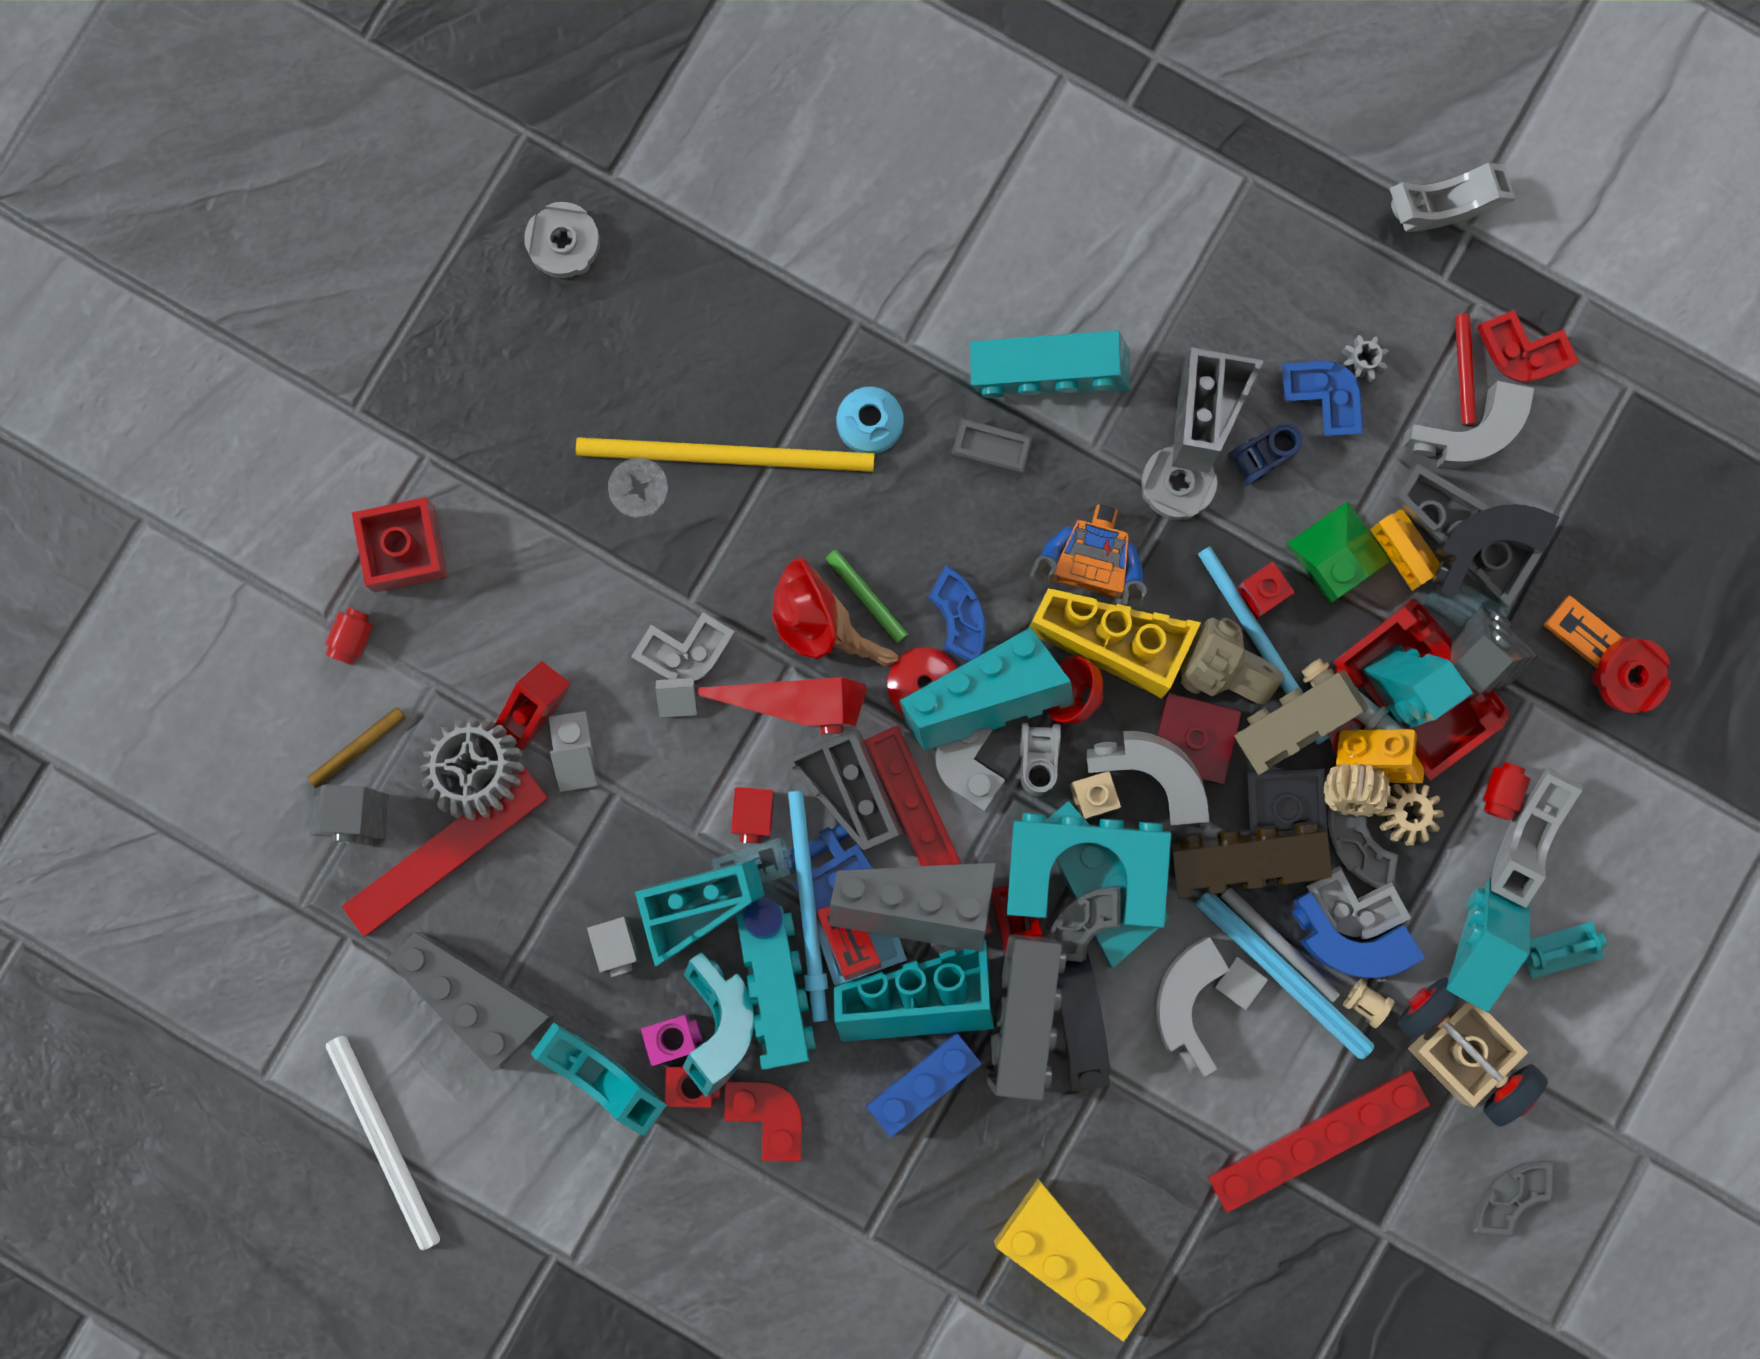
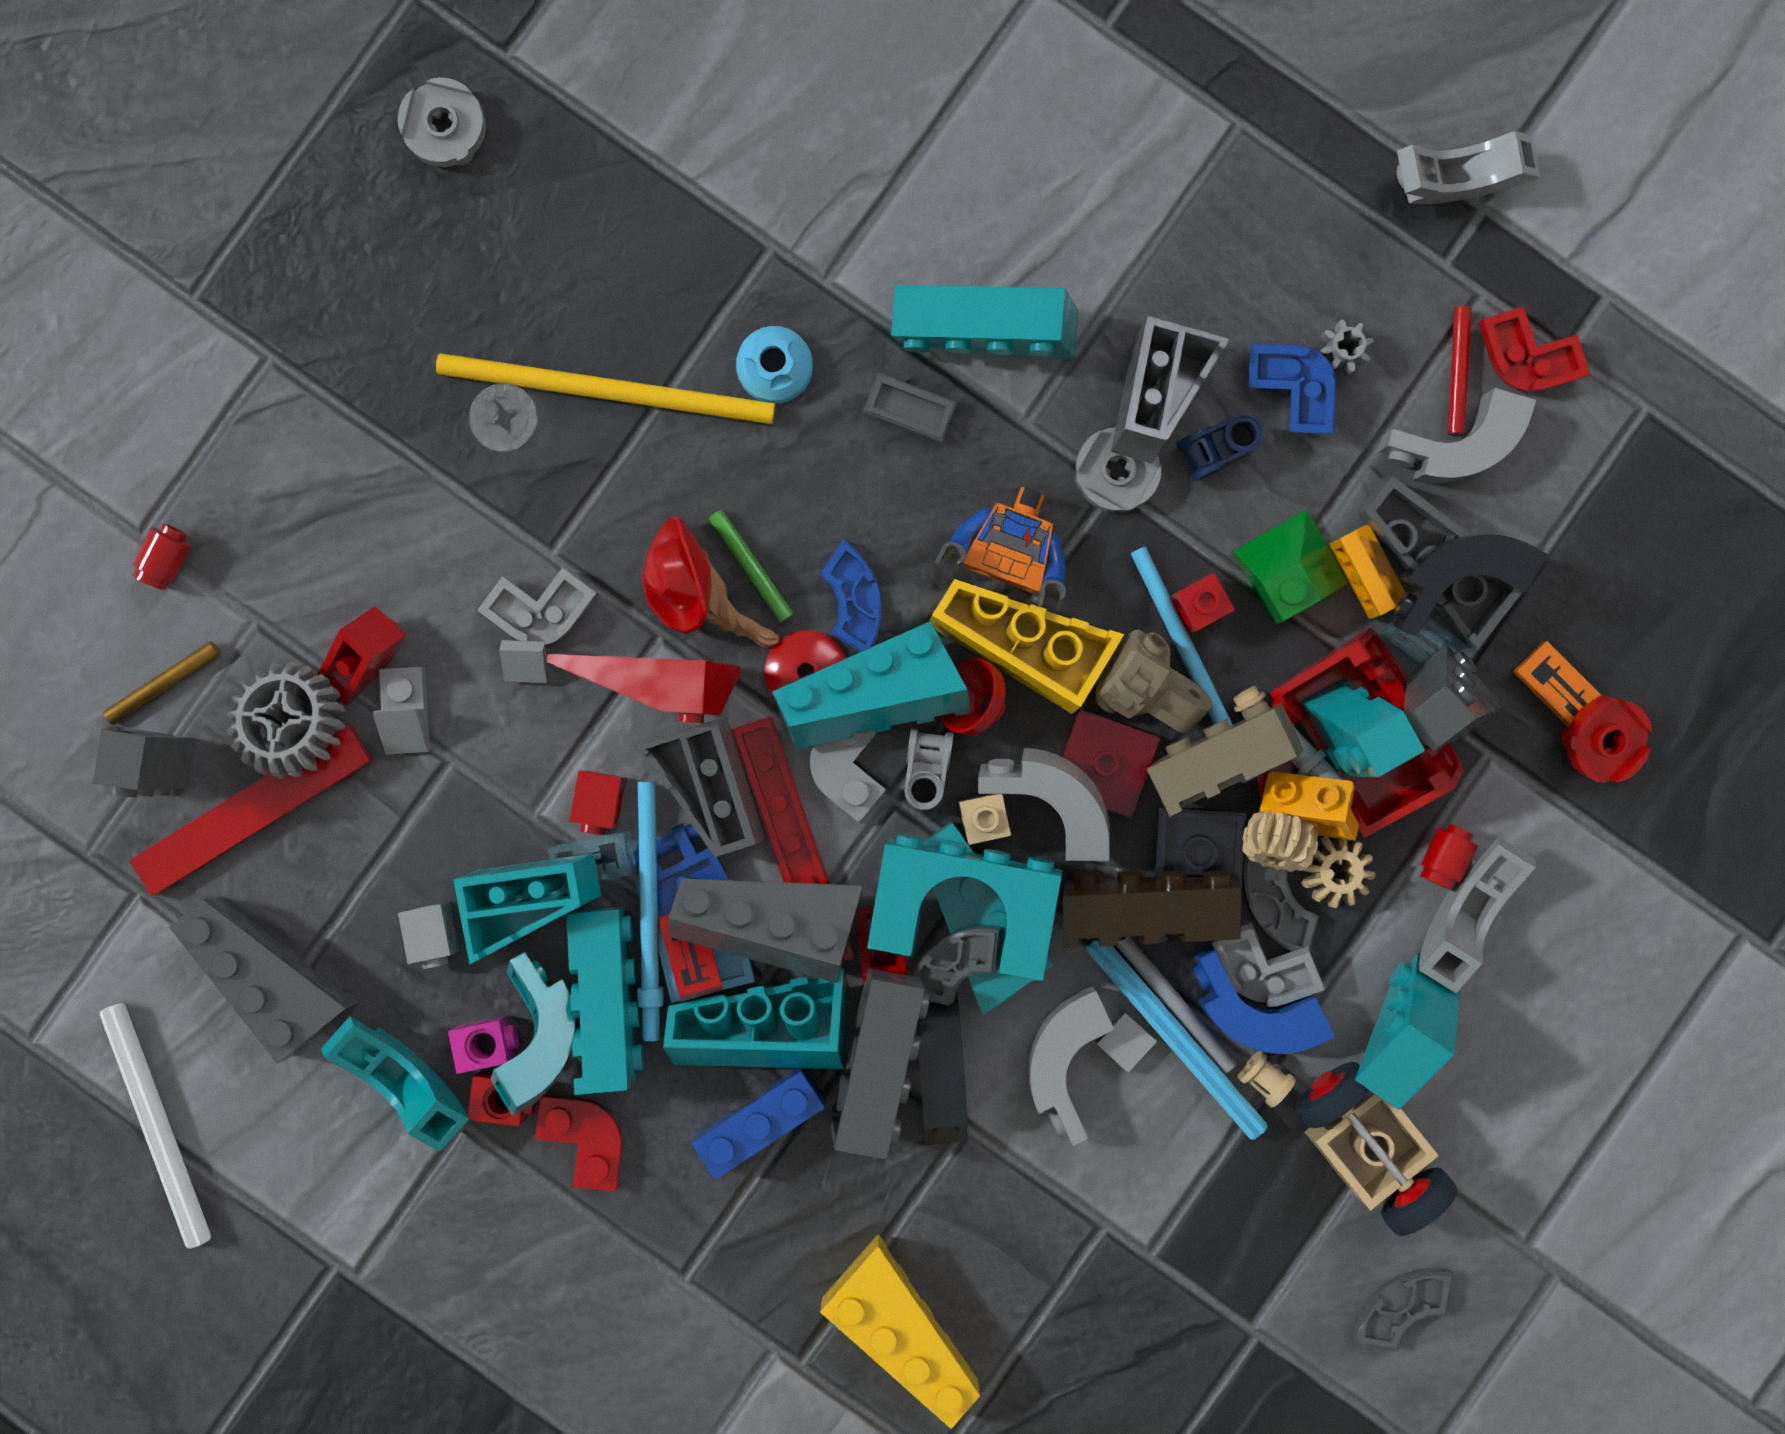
camera: 10 degrees right, 5 degrees up
(399, 545) = (224, 458): red brick -> none
(763, 918) = (595, 922): clear blue tile -> none
(1318, 1141) = (1193, 1224): red plate -> none
(1565, 949) = (1495, 1039): teal hinge -> none

